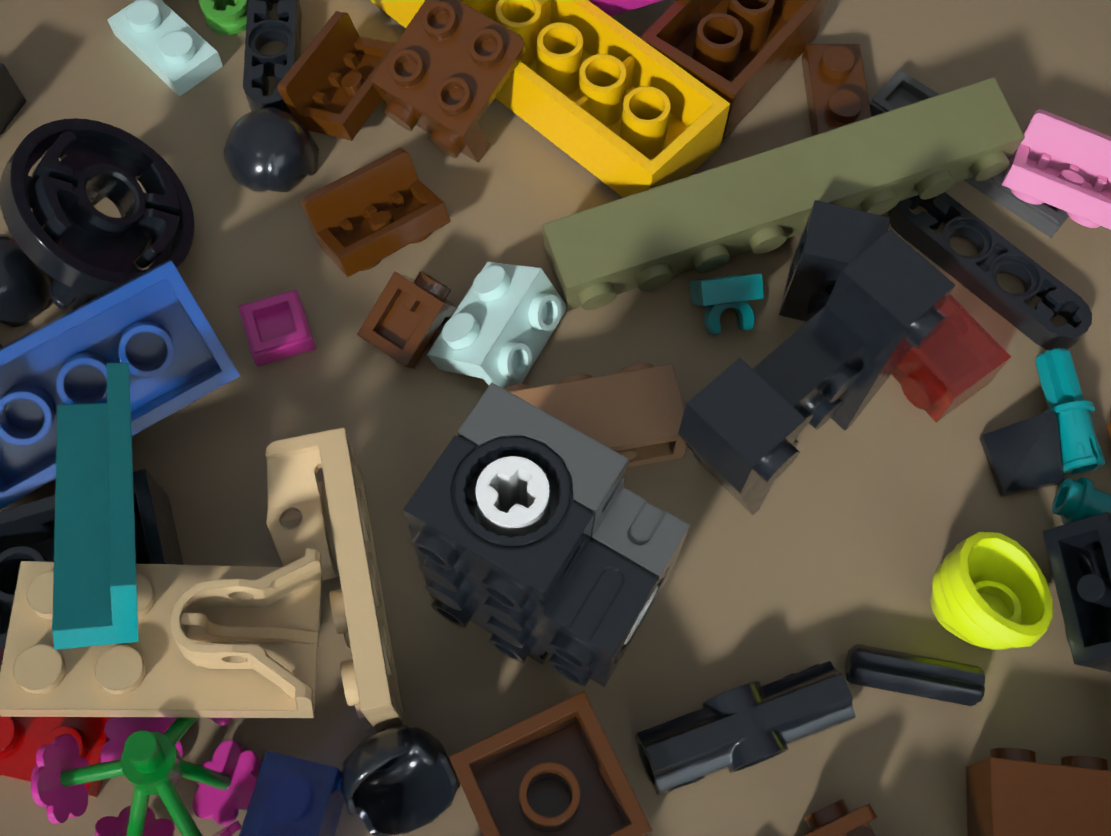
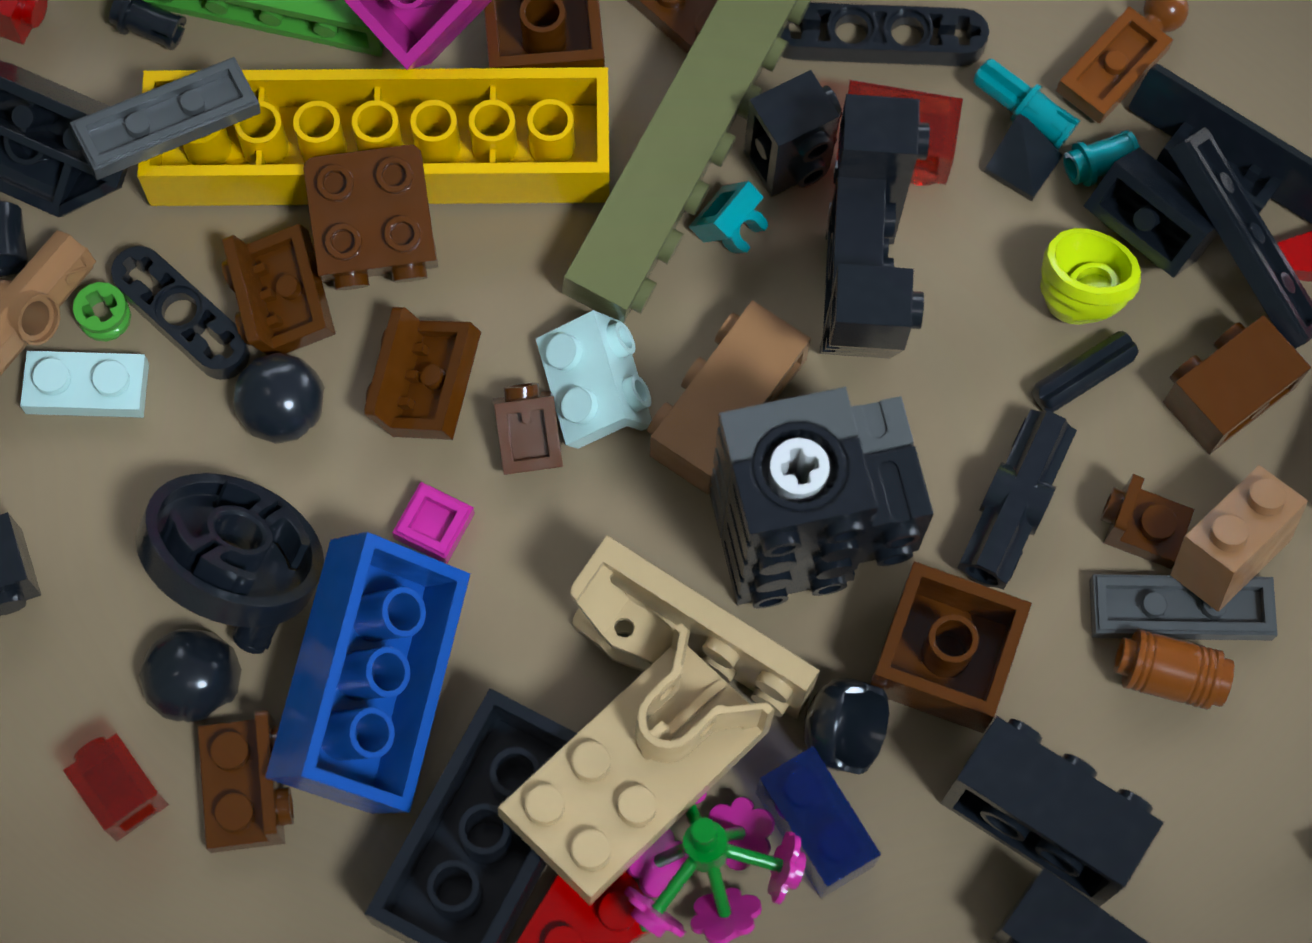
camera: 45 degrees left, 5 degrees up
(95, 521) = (518, 724): teal fence -> none

